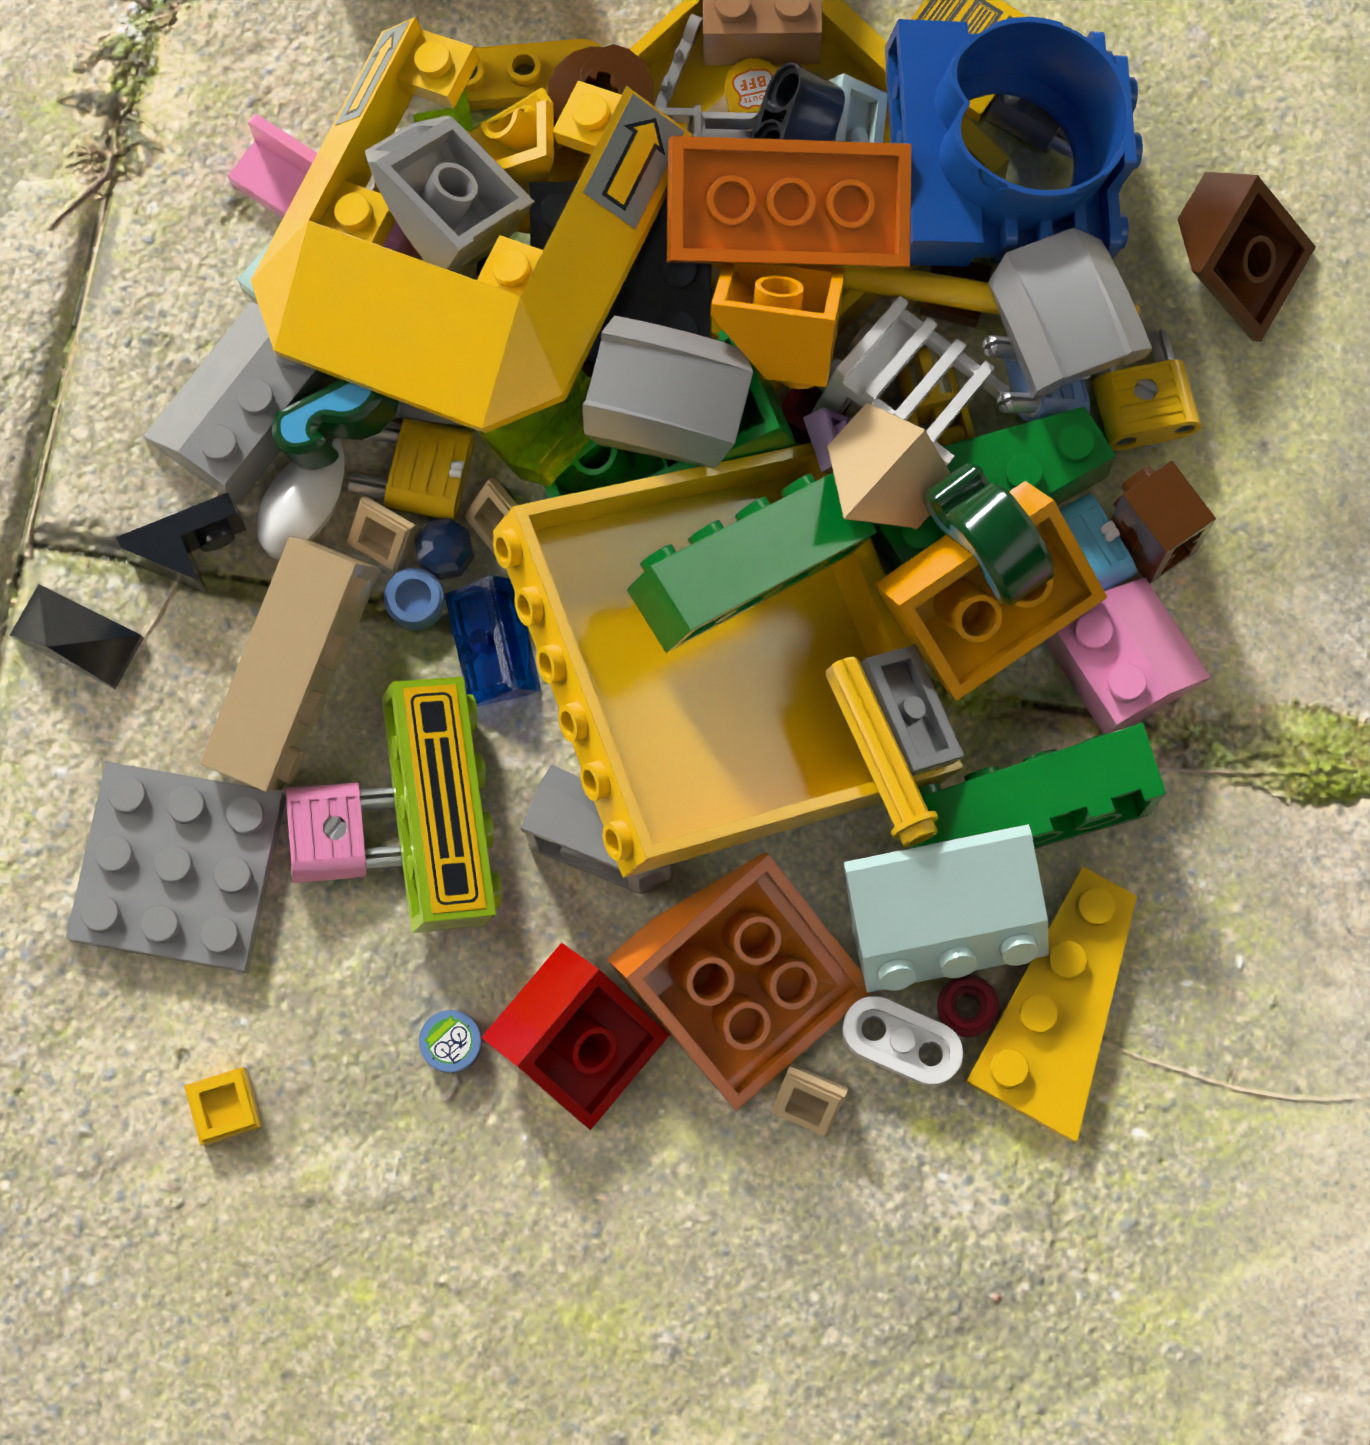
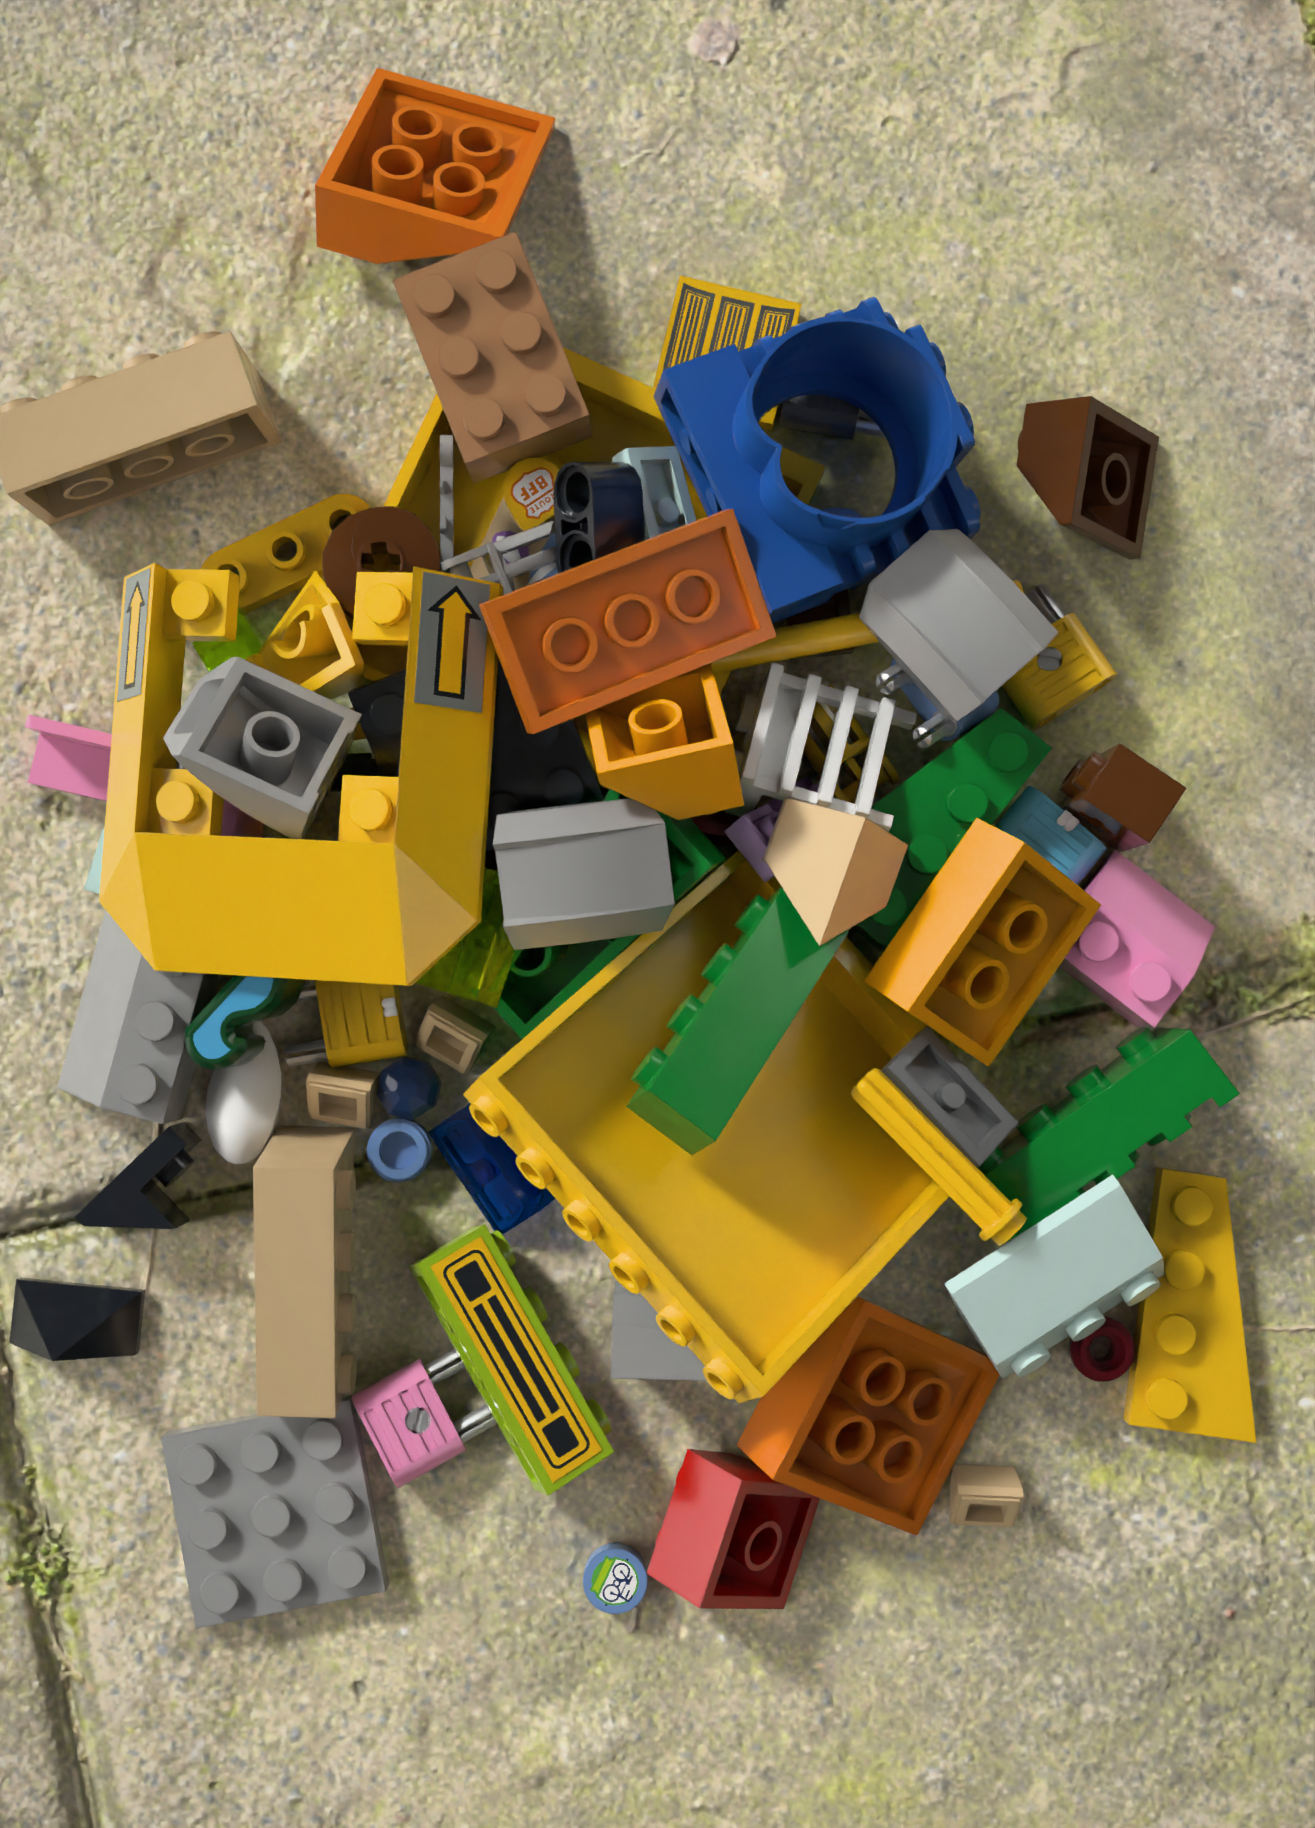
camera: 20 degrees left, 10 degrees up
(223, 1106) = (419, 1726): yellow tile -> none
(903, 1037) = (1050, 1410): white plate -> none
(993, 529) = (969, 896): dark green animal -> none

